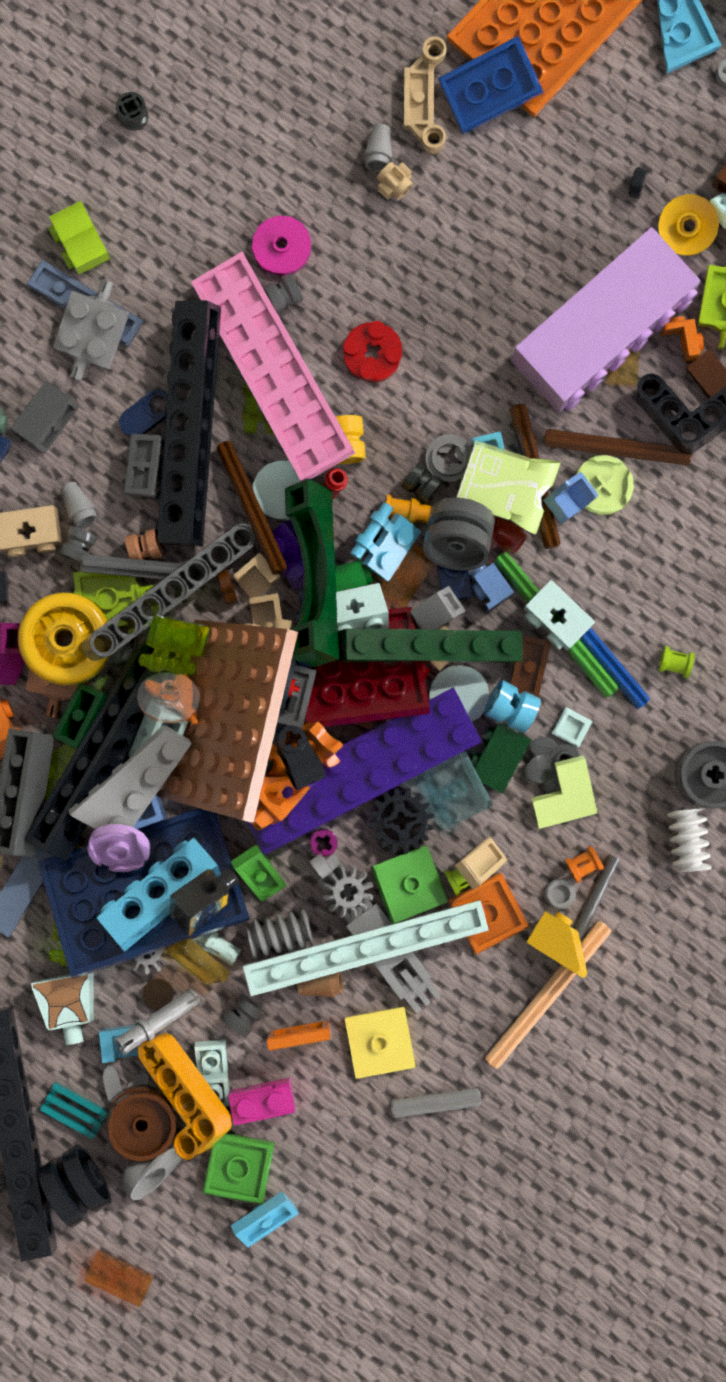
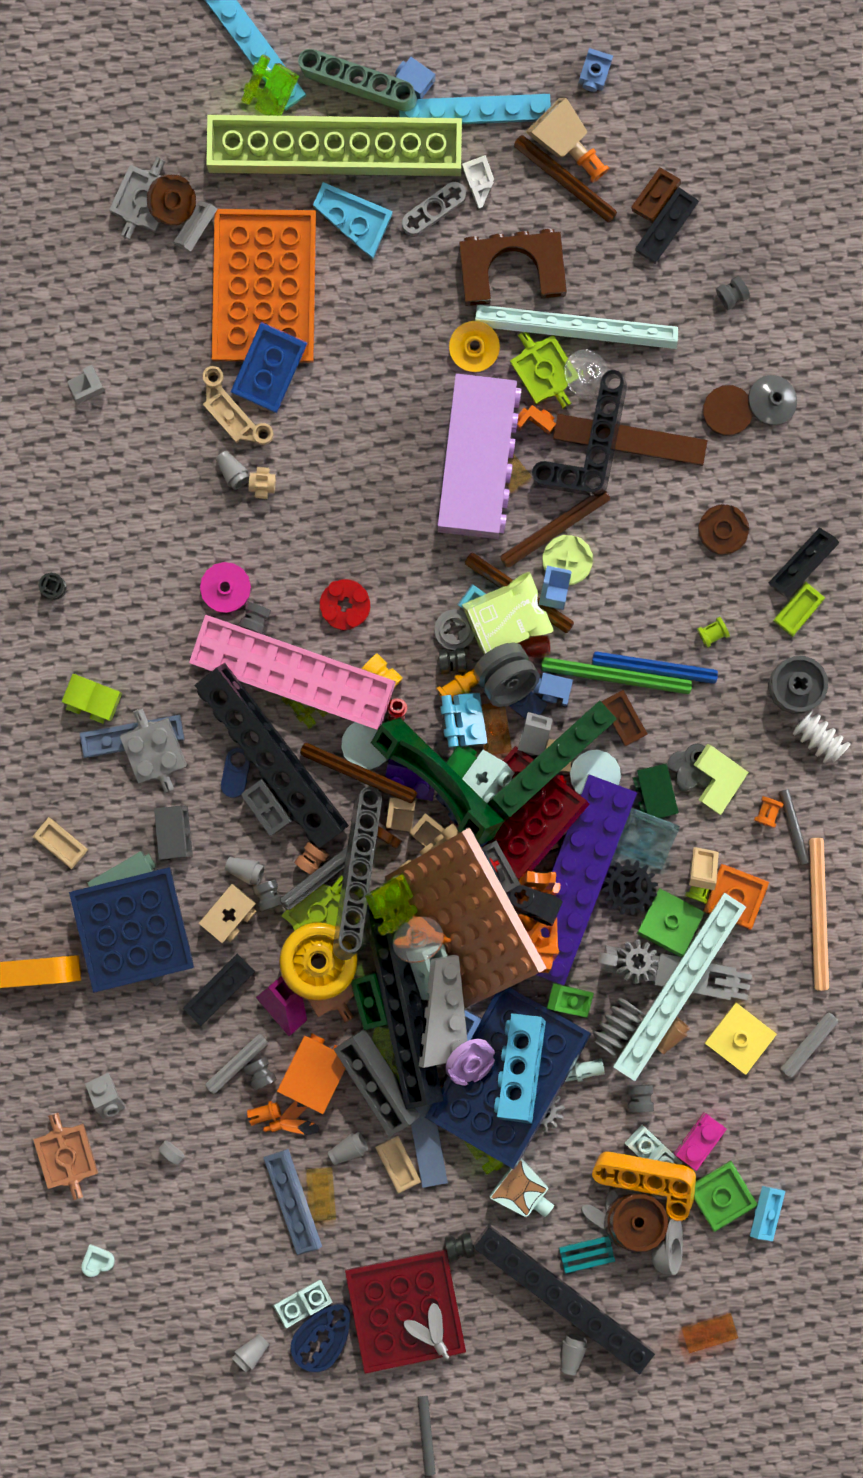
camera: 45 degrees left, 0 degrees up
(74, 1186) = (632, 1294): black wheel -> none
(108, 1048) = (578, 1185): medium azure panel -> none
(147, 1028) = (587, 1159): light grey pin -> none
(158, 993) = (574, 1133): dark brown tile -> none
(198, 962) = (582, 1089): clear yellow tile -> none
(201, 899) = (551, 1047): clear smoke torso -> none
(299, 1035) = (686, 1078): orange tile -> none
(322, 833) = (587, 939): magenta bush -> none
(514, 707) = (636, 753): medium azure wheel -> none
(559, 941) = (796, 874): yellow slope -> none
(560, 893) = (770, 843): light grey tile -> none
(571, 727) = (684, 732): light aqua tile -> none
(574, 618) = (626, 663): light aqua brick -> none
(637, 182) = (417, 346): black tile -> none

